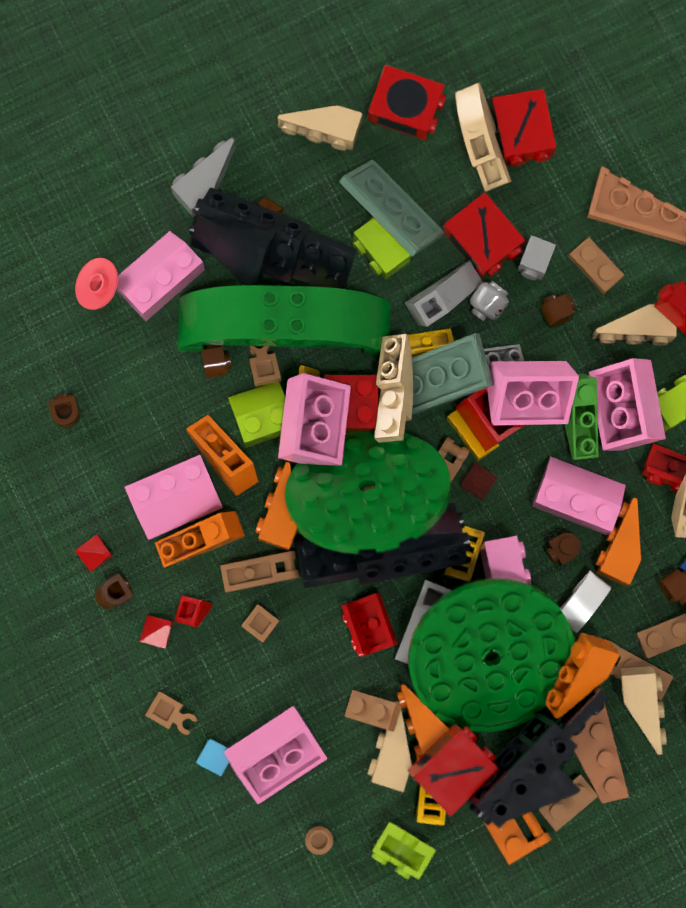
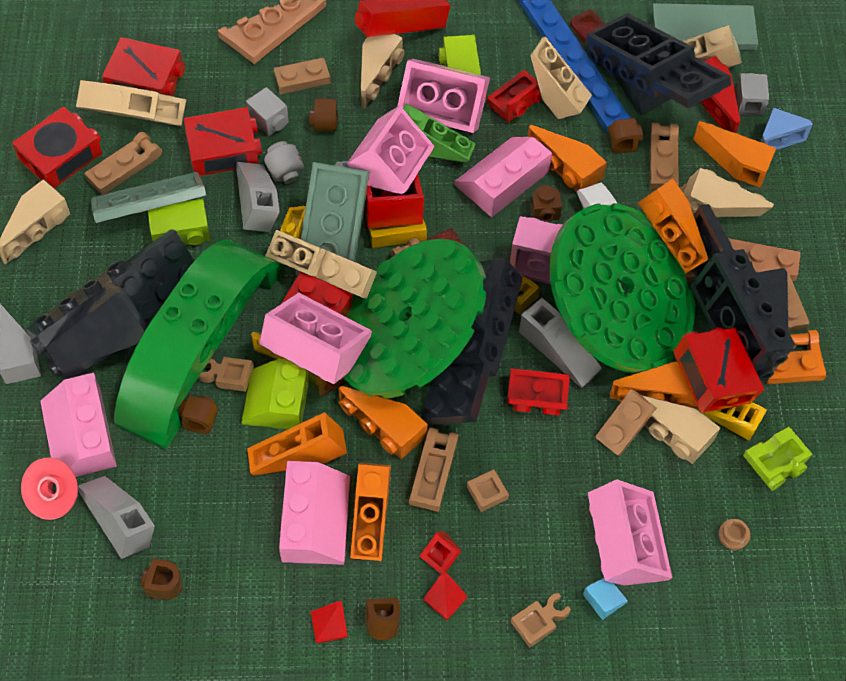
camera: 60 degrees left, 20 degrees down
(100, 345) = (118, 515): none -> light grey slope
(421, 165) = (123, 164): none -> medium nougat plate

